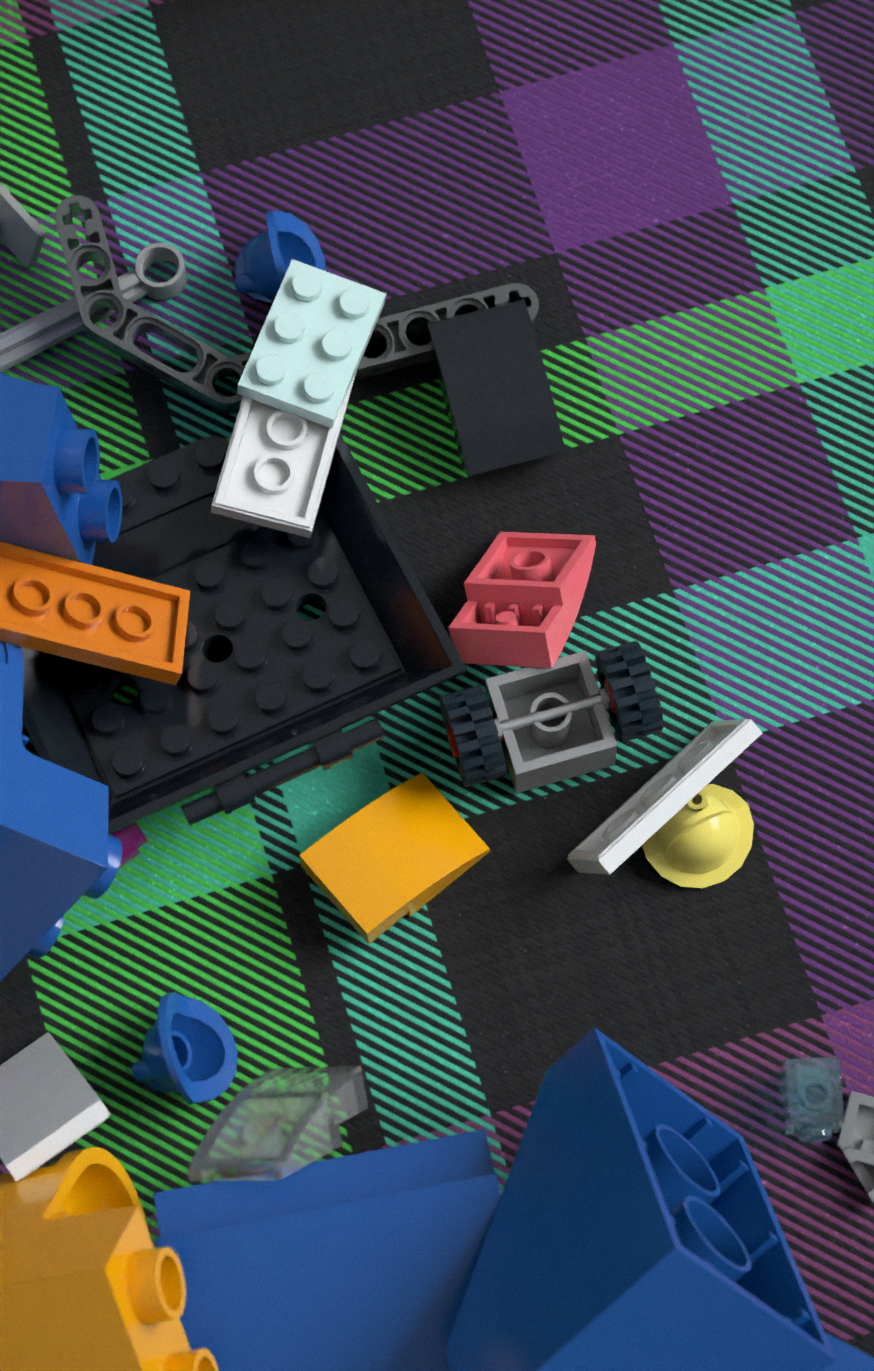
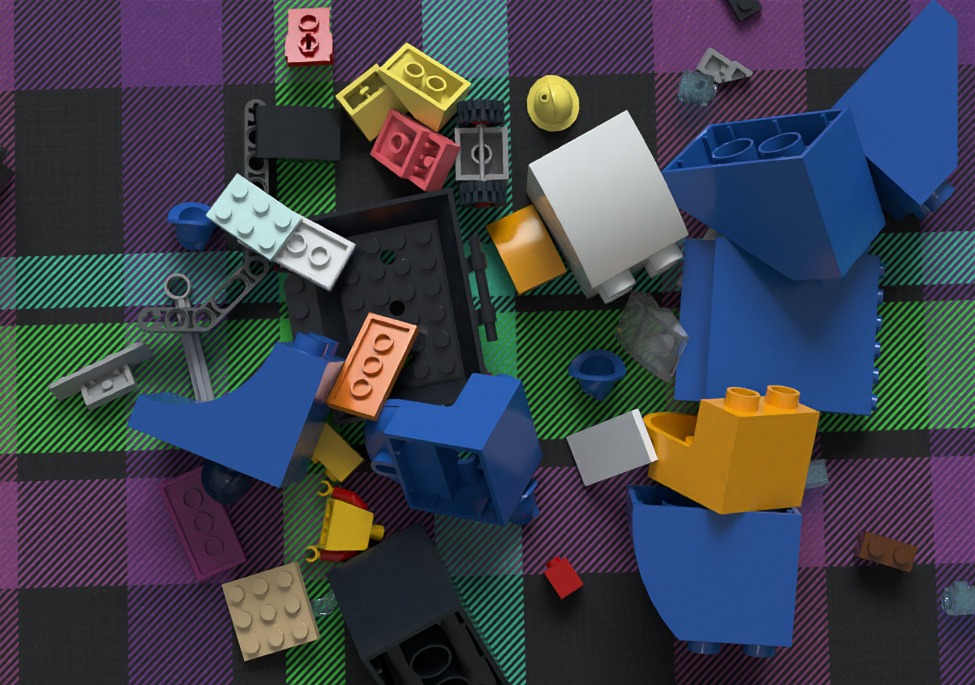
camera: 75 degrees left, 15 degrees up
(496, 946) = (607, 208): none -> white slope
(600, 494) = (369, 102): none -> light yellow slope
(651, 578) = (424, 86): none -> light yellow slope
(663, 796) = (533, 107): white tile -> none
(682, 366) = (309, 38): none -> piece

